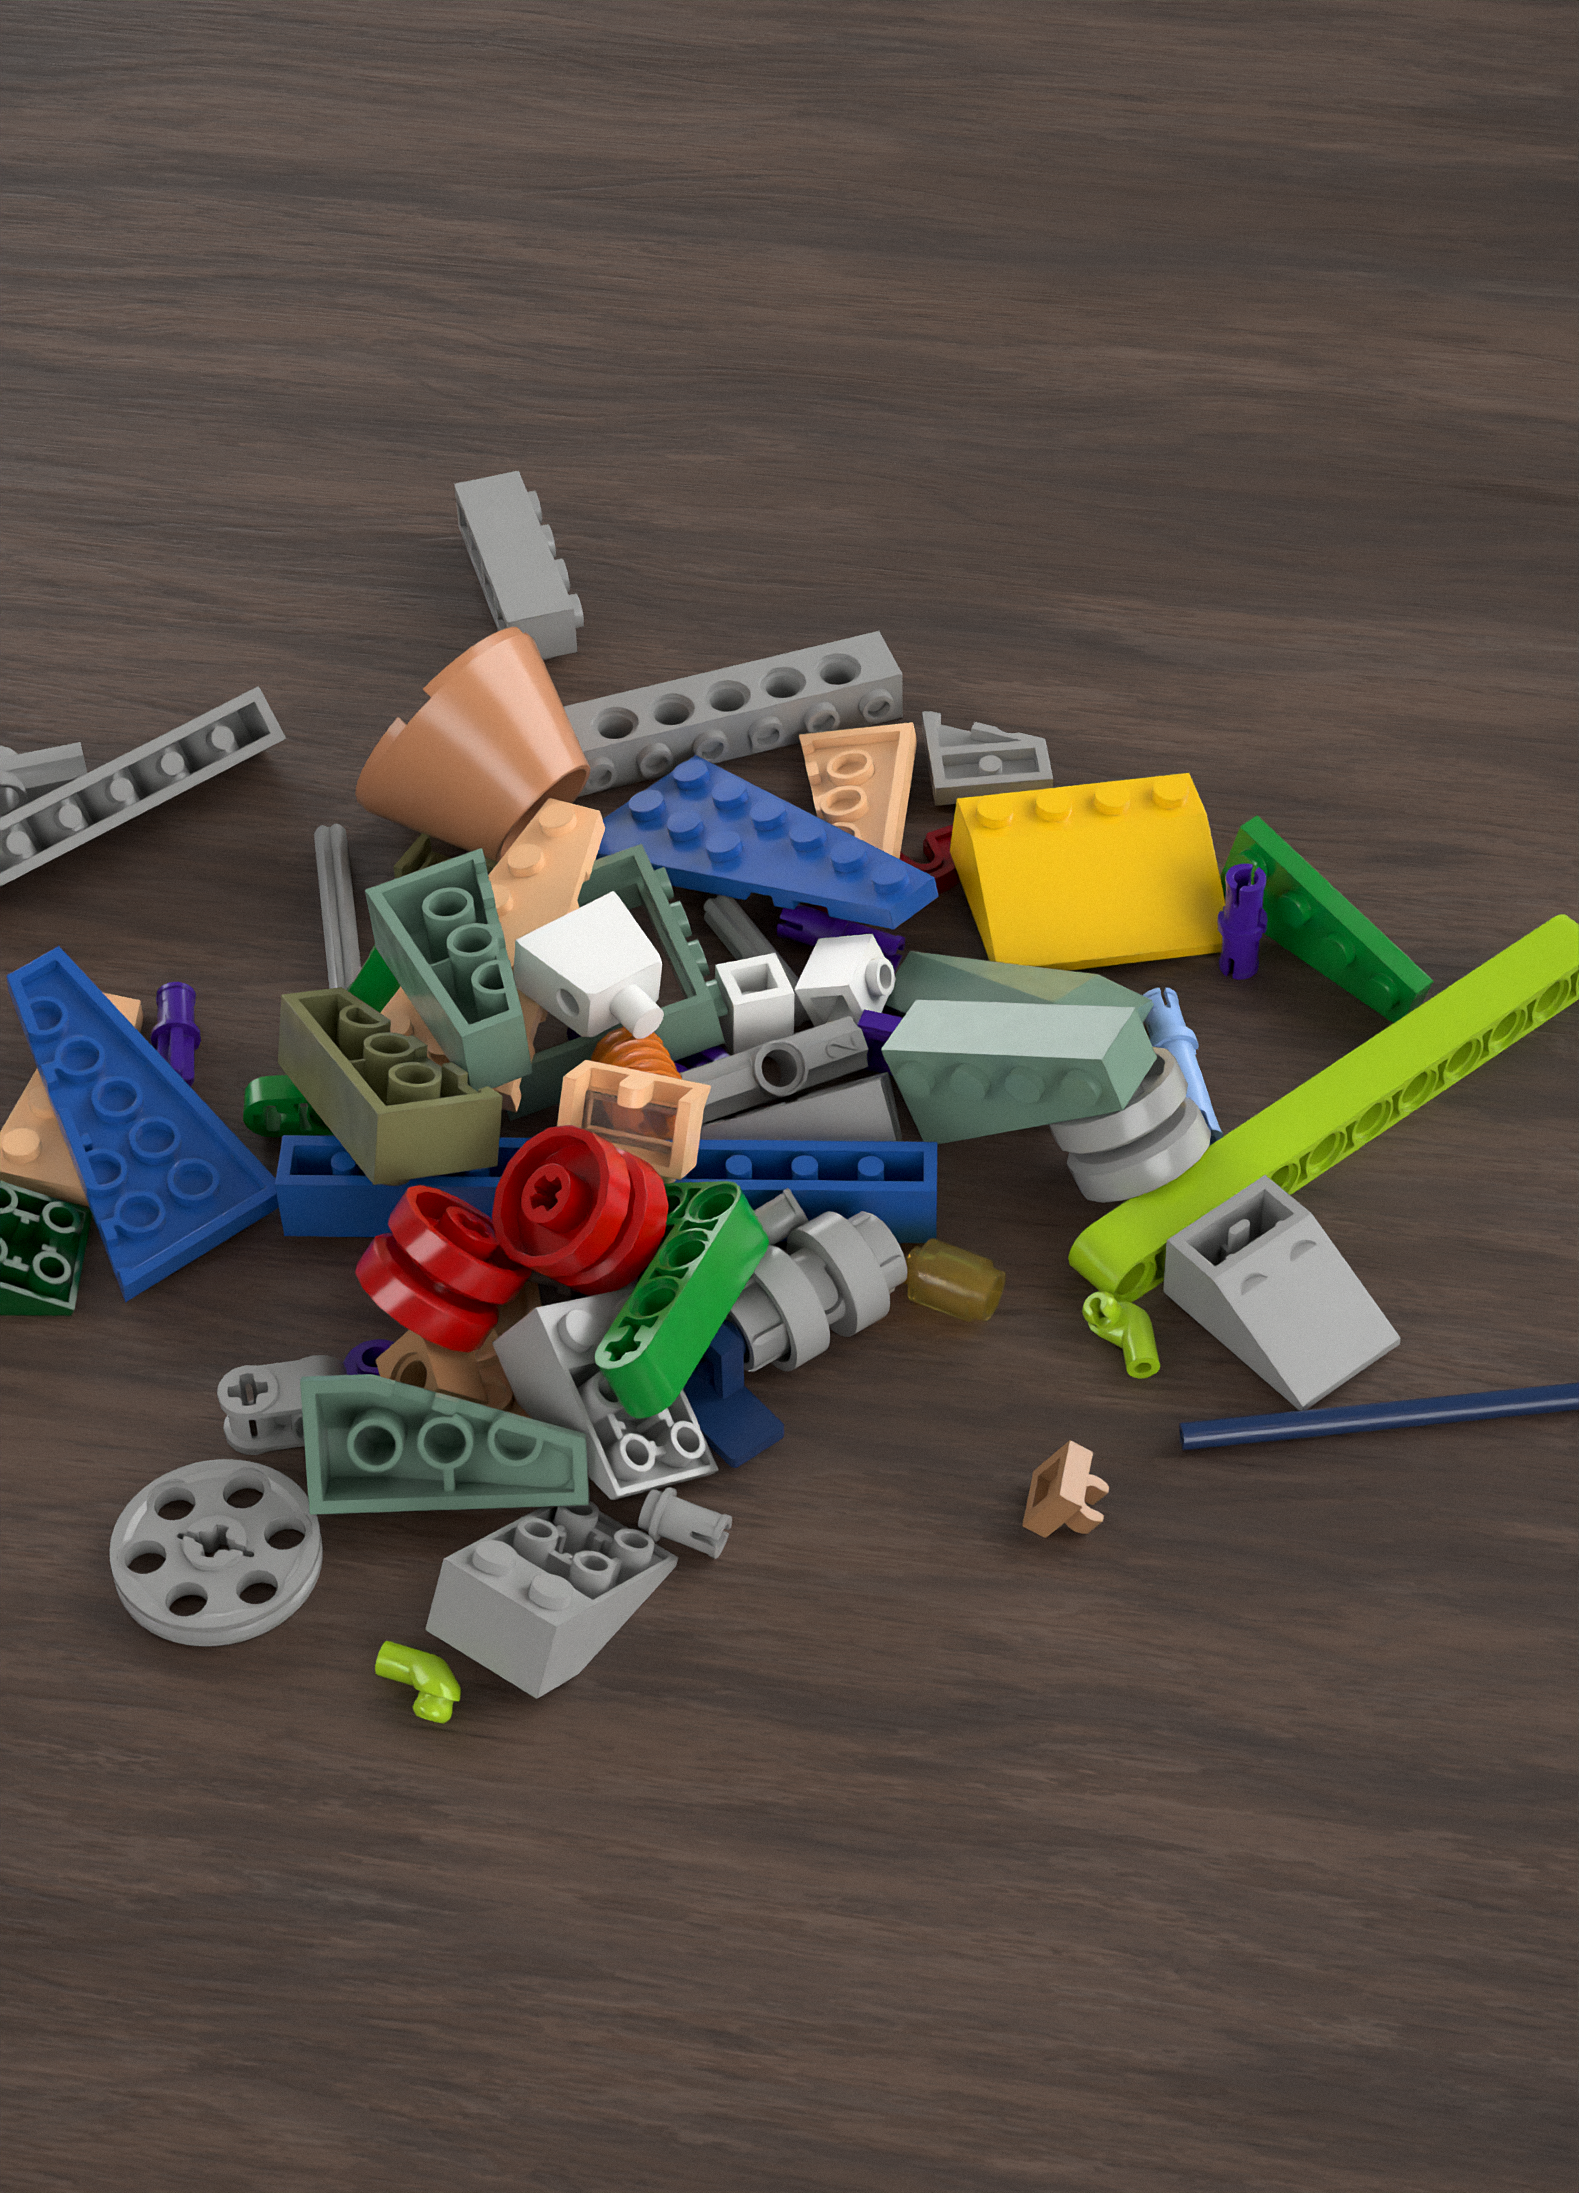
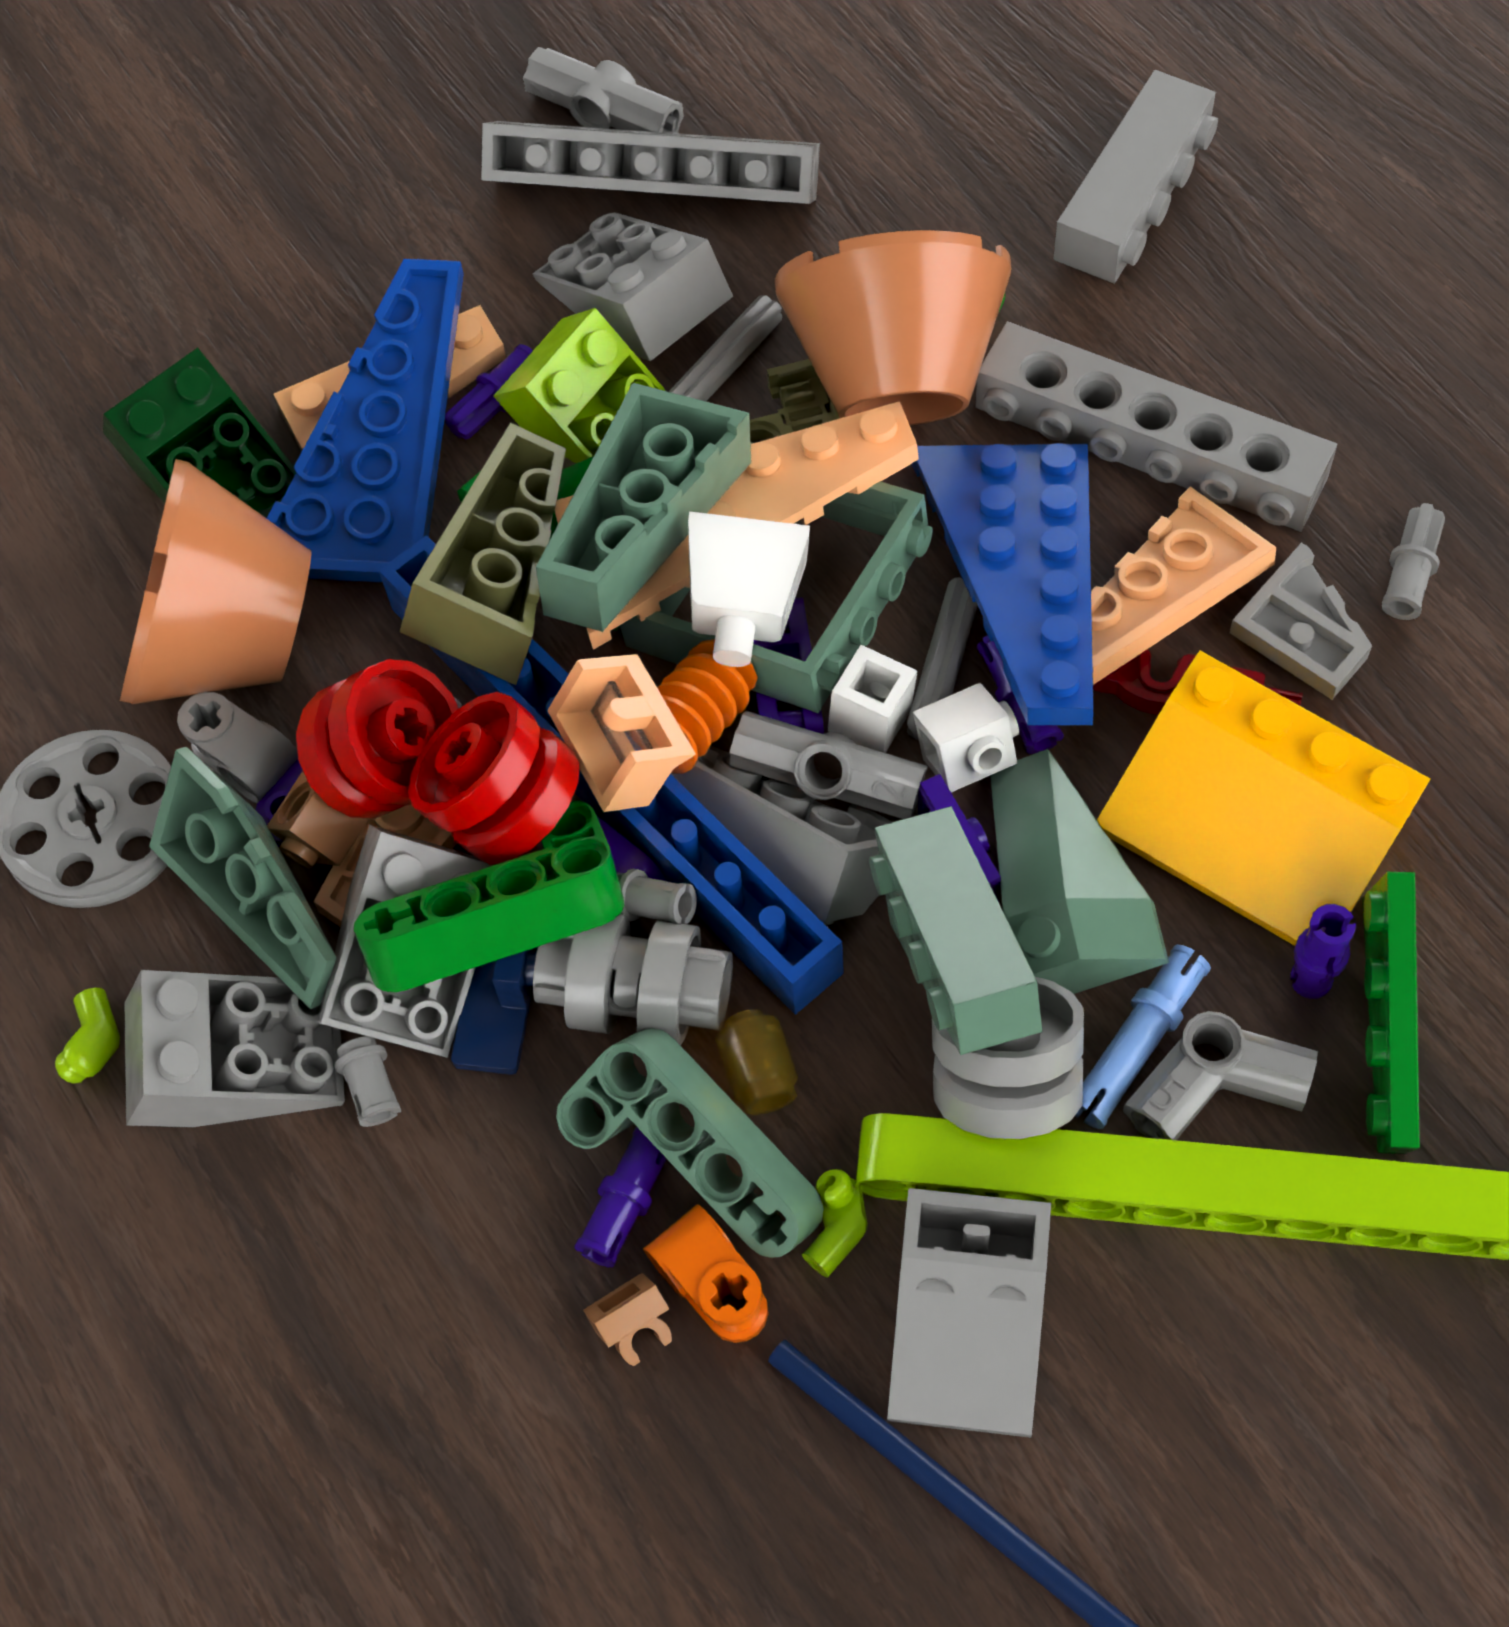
camera: 50 degrees right, 15 degrees up
(143, 1300) = (216, 596): none -> nougat cone
(199, 885) = (640, 278): none -> light grey slope
(237, 971) = (574, 384): none -> lime slope
(965, 1433) = (621, 1201): none -> dark purple pin
(990, 1345) = (696, 1150): none -> sand green beam
(1006, 678) = (1413, 562): none -> light grey axle
(1089, 1416) = (704, 1269): none -> orange piece
(1250, 1034) = (1186, 1082): none -> light grey piece

